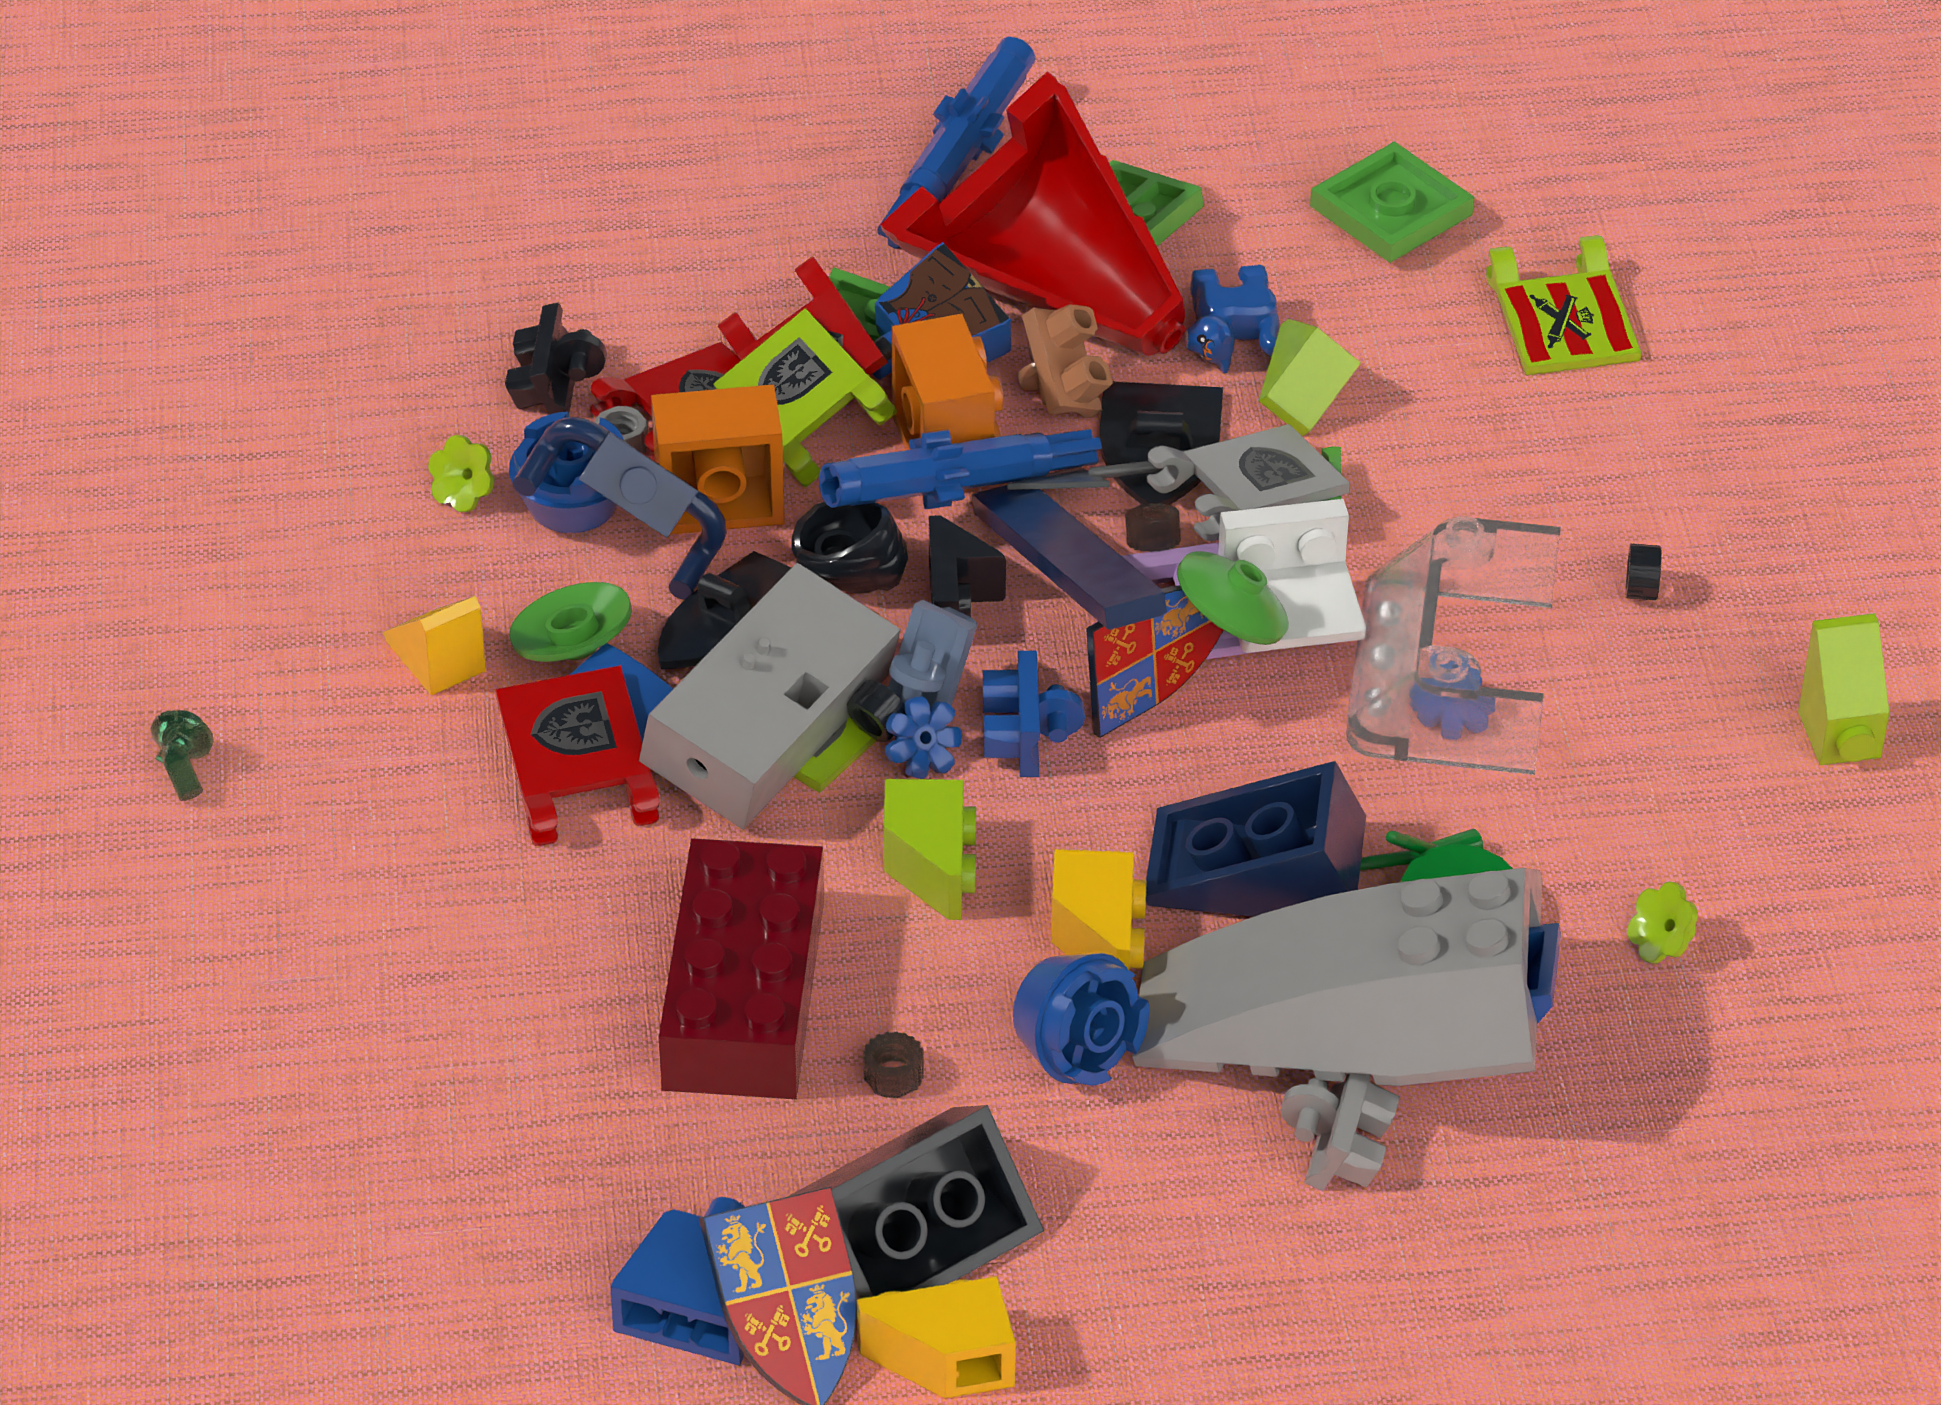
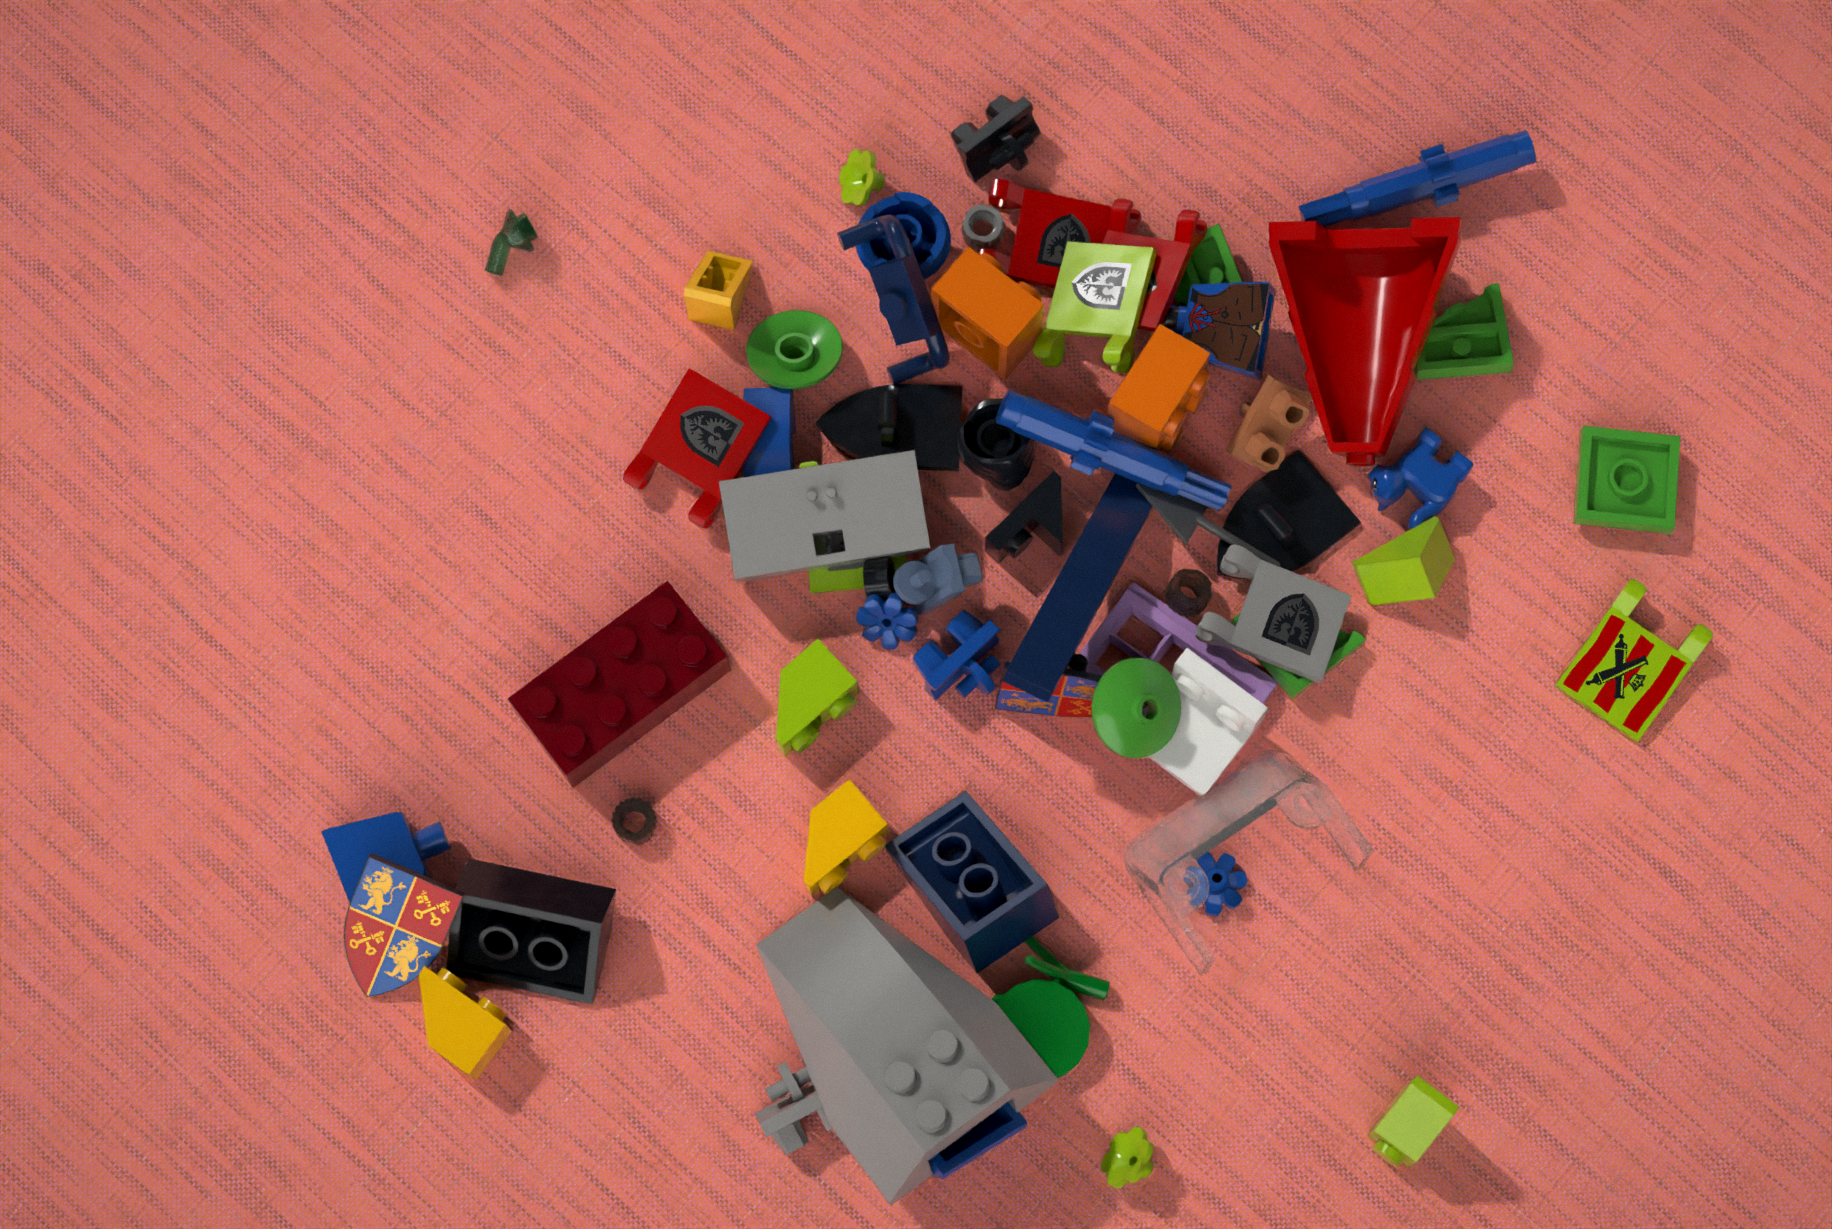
camera: 50 degrees right, 30 degrees up
(1080, 1016) = (738, 900): blue cone -> none
(1643, 571) = (1424, 907): black axle -> none

